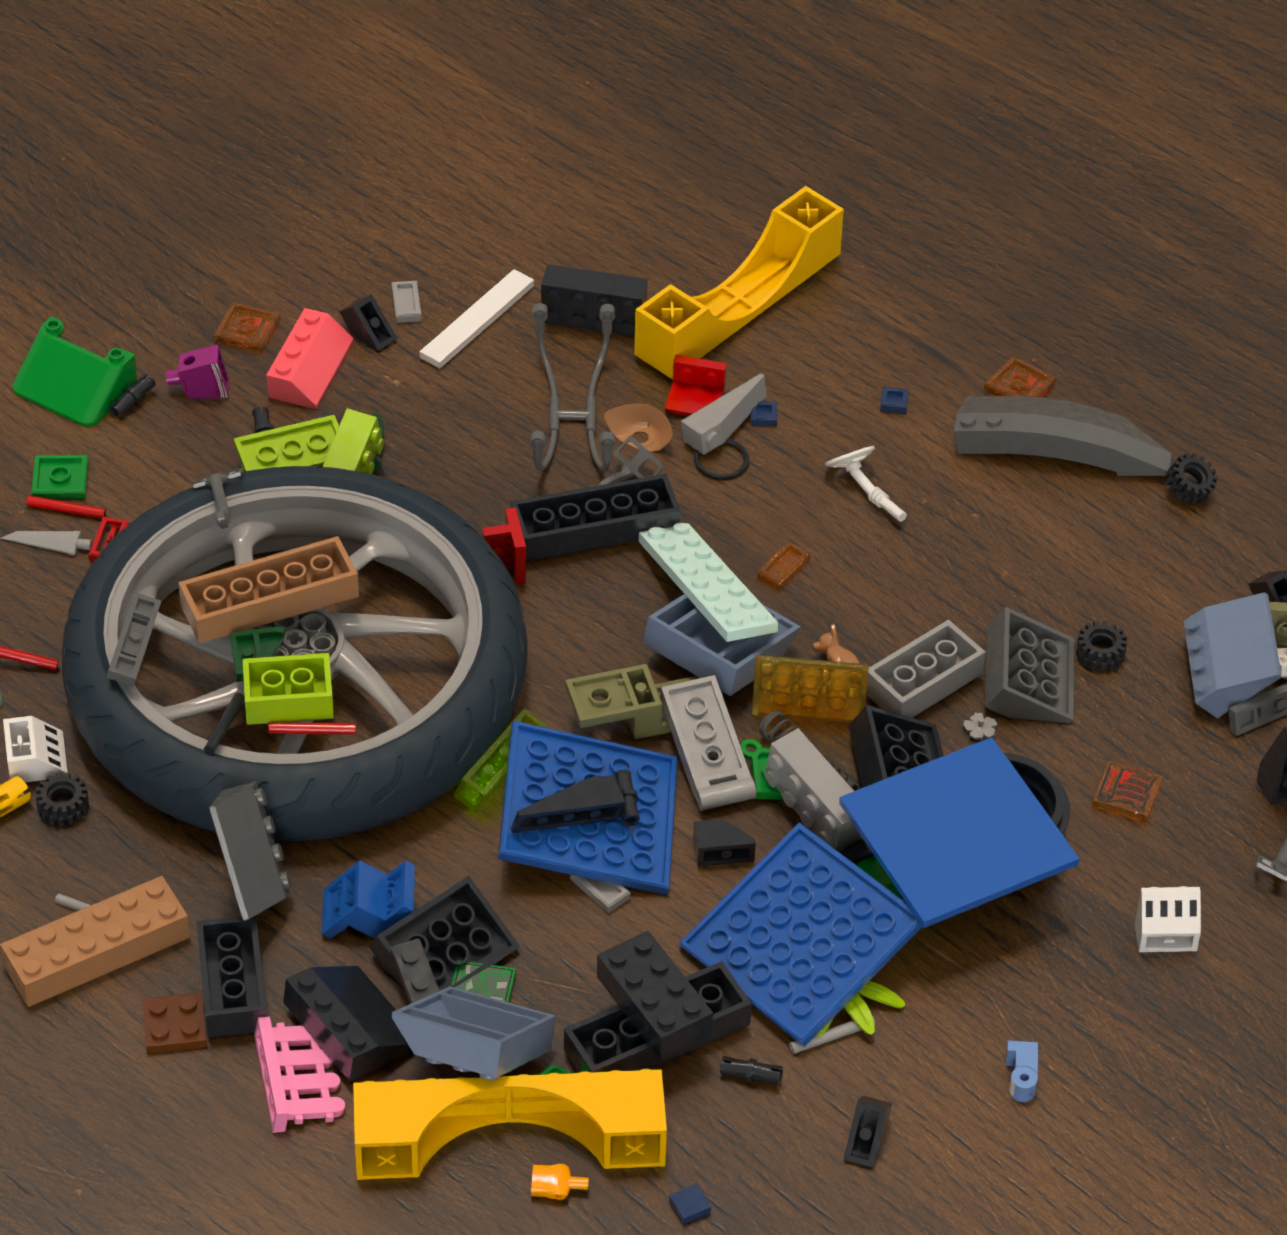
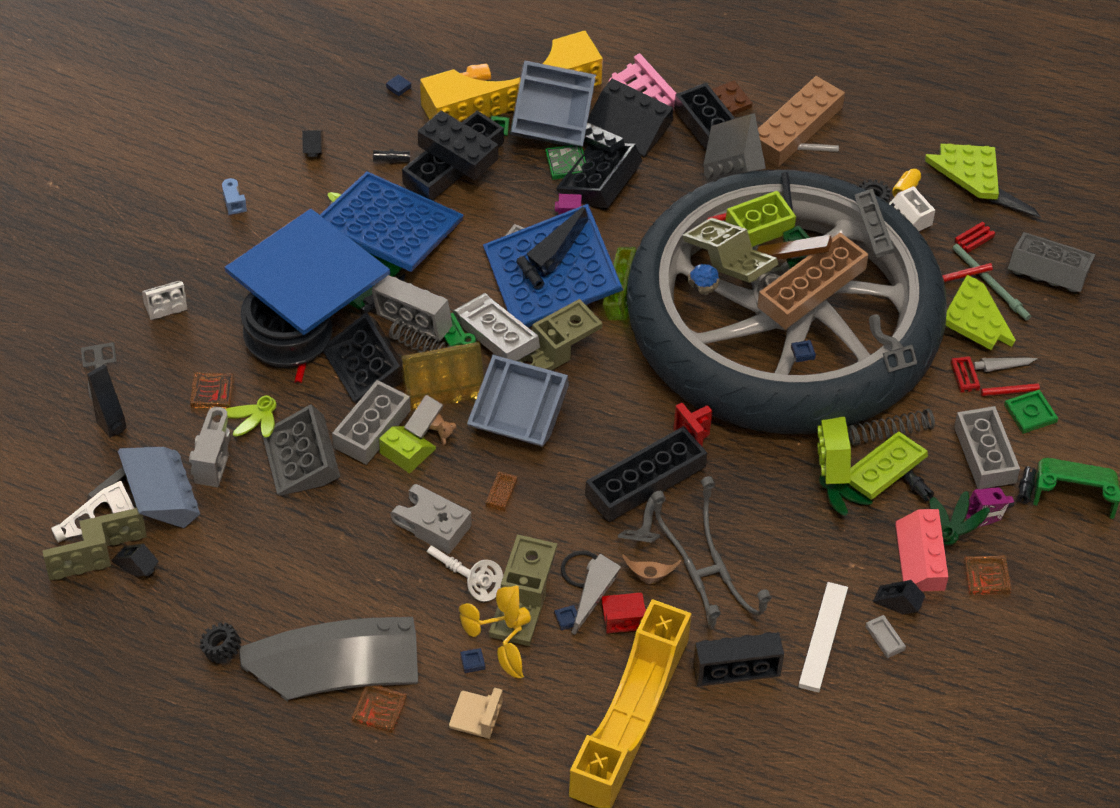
camera: 160 degrees right, 5 degrees up
(38, 598) = (977, 316): none -> lime wing
(154, 434) = (986, 447): none -> light grey brick
(252, 372) = (957, 526): none -> dark green plant
(268, 621) = (798, 247): none -> reddish brown tile
(333, 526) = (803, 351): none -> dark blue tile
(358, 652) = (730, 250): none -> olive bracket
(368, 899) = (654, 177): blue bracket -> none
(413, 637) = (705, 278): none -> blue piece
(517, 903) = (567, 202): none -> magenta brick
(708, 582) = (540, 425): light aqua plate -> none
(721, 843) = (462, 276): black slope -> none
(808, 429) = (531, 579): none -> olive bracket
(833, 396) = (507, 602): none -> yellow plant
(854, 650) = (423, 416): none -> light grey tile
(882, 633) = (404, 448): none -> lime slope
(885, 542) = (433, 519): none -> light grey brick
(908, 343) = (476, 713): none -> tan bracket
(980, 727) = (325, 408): light grey plant -> none
(1066, 742) = (258, 412): none -> lime plant
(1101, 657) = (253, 478): black tyre -> none
(1151, 687) = (211, 449): none -> light grey brick

